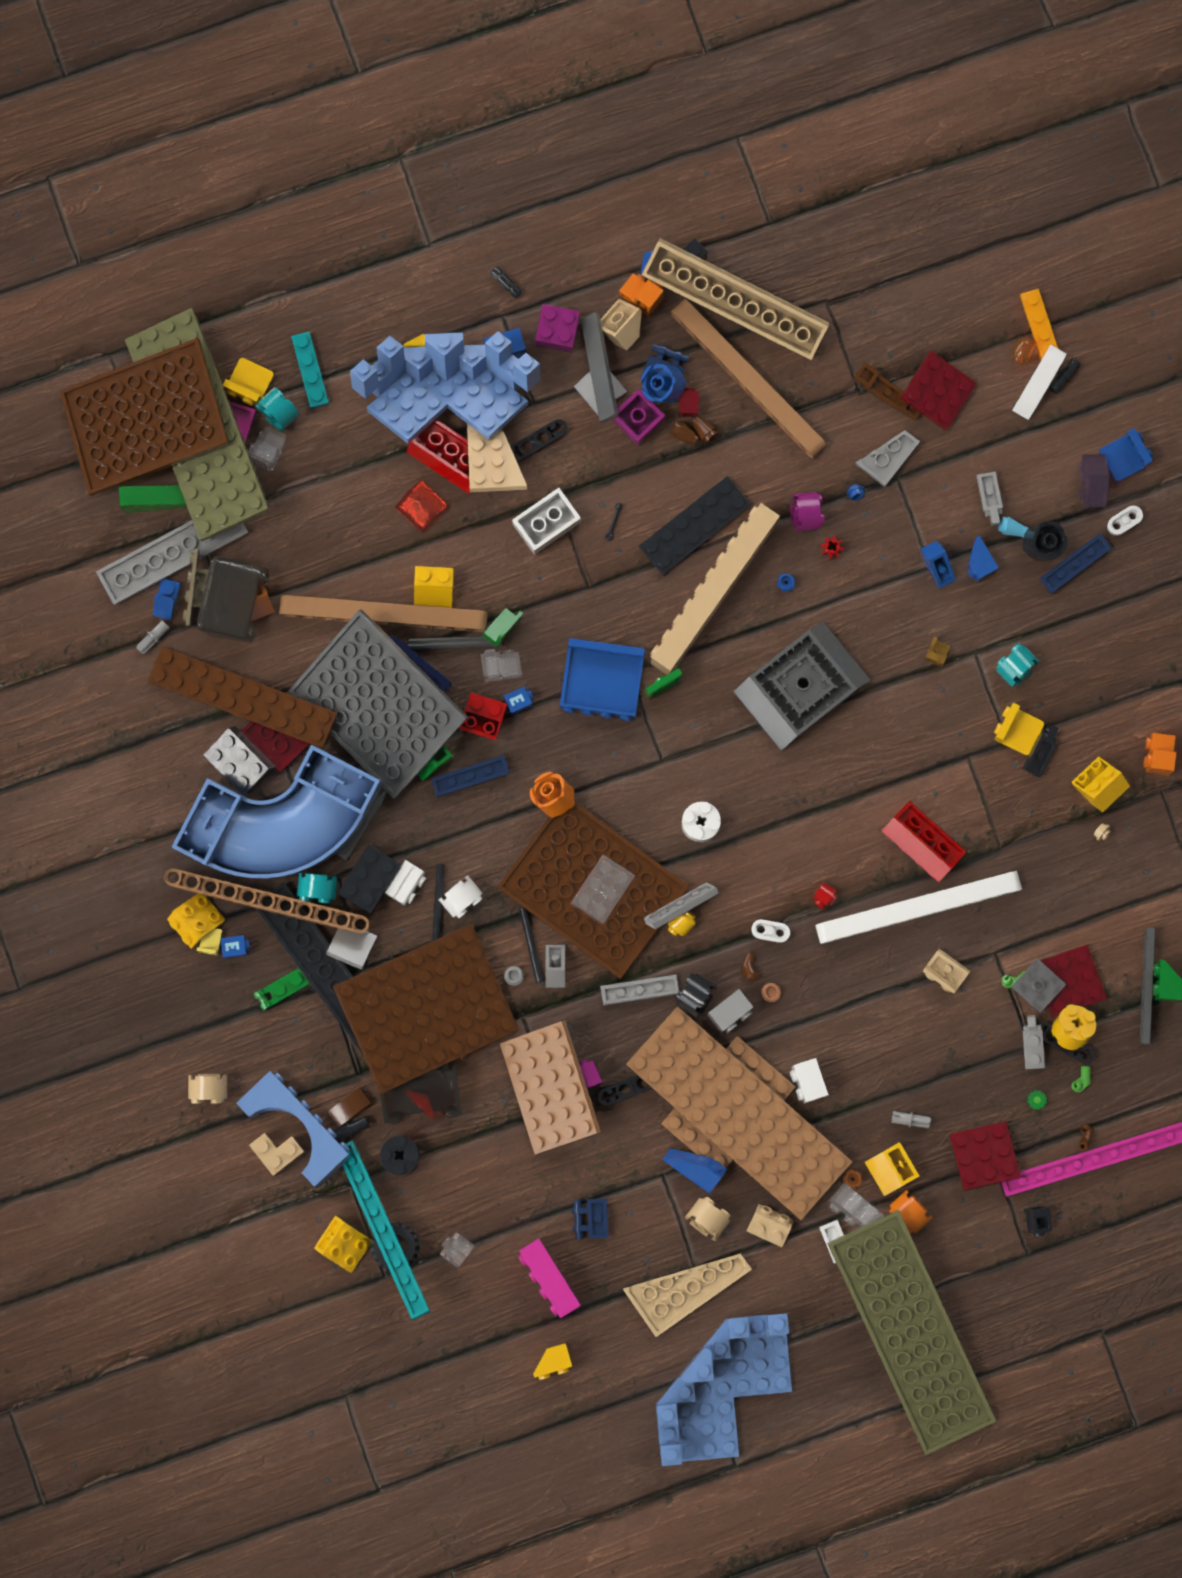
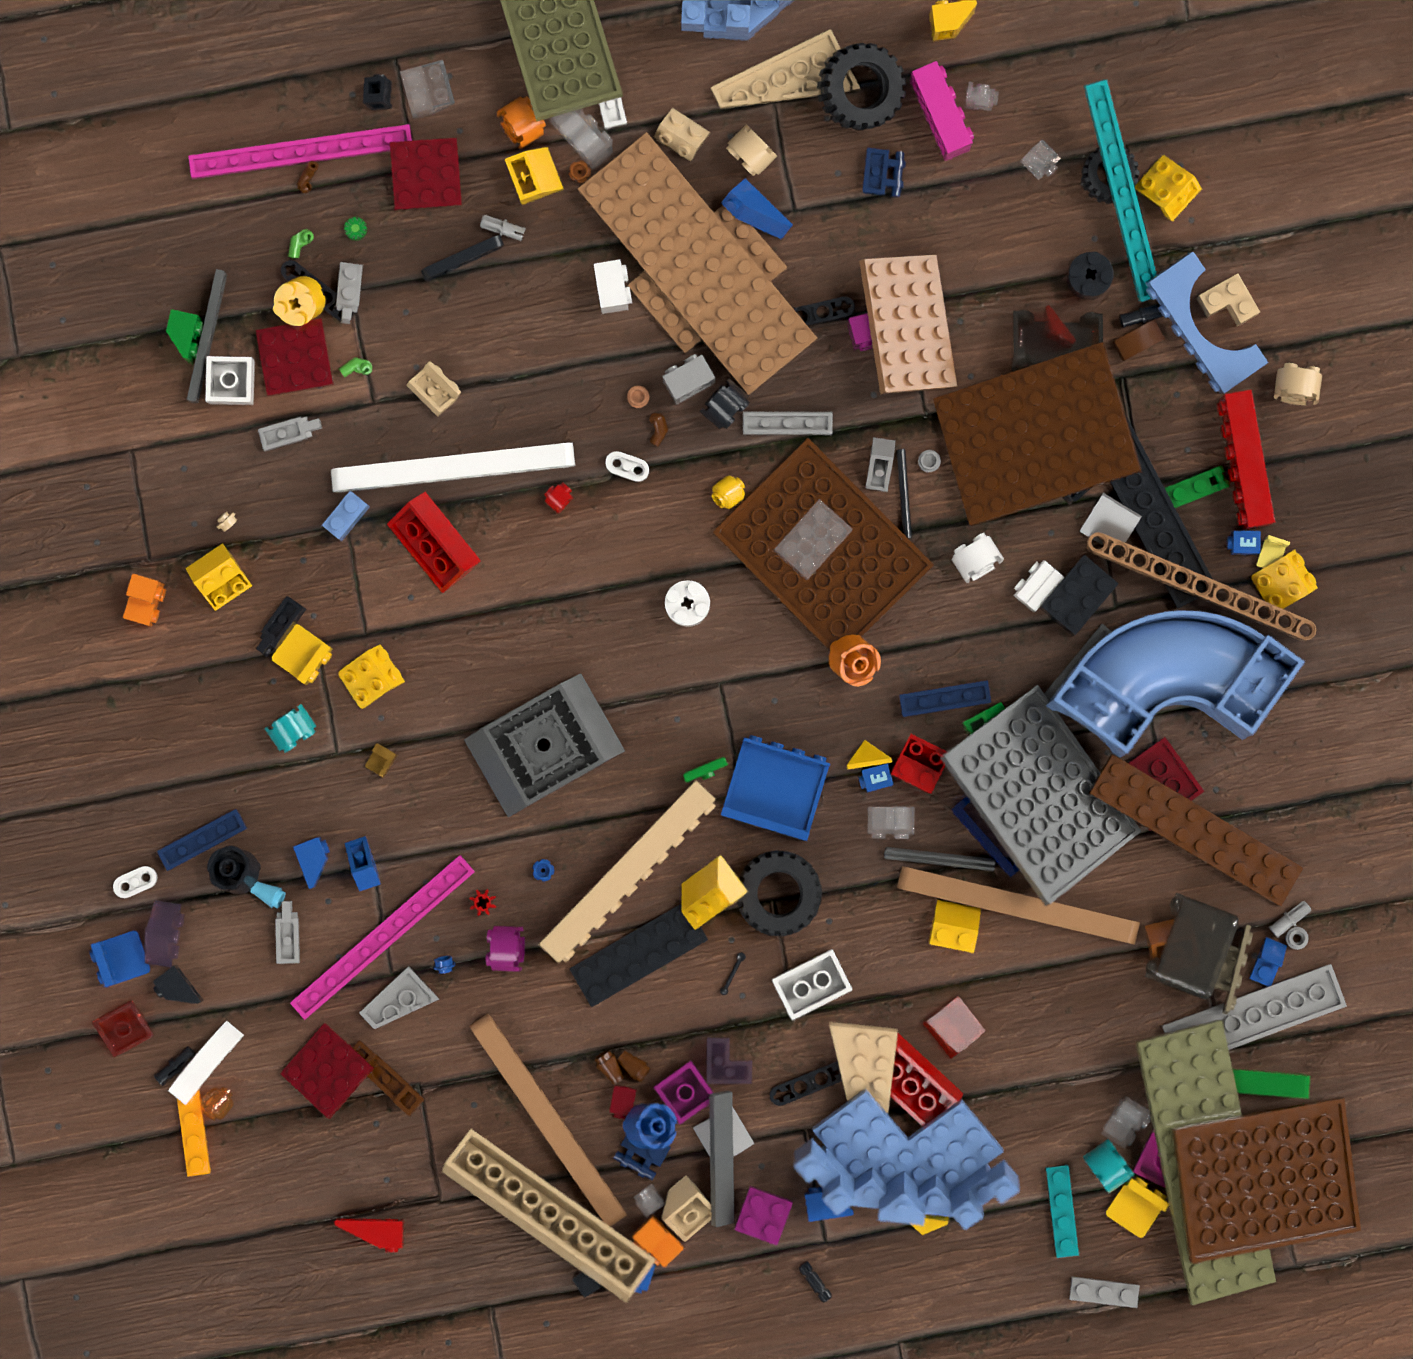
camera: 170 degrees left, 5 degrees up
(144, 616) = (1303, 941): none -> light grey plate
(239, 760) = (1210, 756): brick -> none
(243, 1016) = (1246, 460): none -> red brick
(265, 310) = (1104, 1292): none -> light grey plate
(316, 886) = (1141, 595): teal brick -> none
(437, 905) = (1005, 550): black bar -> none
(502, 627) = (882, 867): panel -> none
(516, 1298) = (980, 97): none -> clear brick
(528, 717) = (867, 756): none -> yellow slope
(586, 566) = (808, 902): none -> black tyre
(597, 1280) = (889, 79): none -> black tyre
(609, 440) = (722, 1069): none -> clear purple brick
(643, 581) = (710, 892): none -> yellow slope
(653, 326) = (649, 1200): none -> clear brick
(681, 905) = (726, 509): light grey tile -> none
(873, 267) = (378, 1232): none -> red slope
(910, 507) = (382, 937): none -> dark pink plate
(940, 1088) = (462, 258): none -> black beam
(957, 720) = (370, 676): none -> yellow bracket
(996, 1229) = (427, 89): none -> clear slope
(1002, 851) = (345, 516): none -> medium blue brick
(1038, 985) = (331, 355): flat silver plate -> none
(1064, 915) = (287, 432): none -> light grey hinge
(1074, 439) = (176, 987): none -> black slope
(1113, 399) = (123, 1028): none -> clear red slope
(1120, 950) = (230, 380): none -> white brick

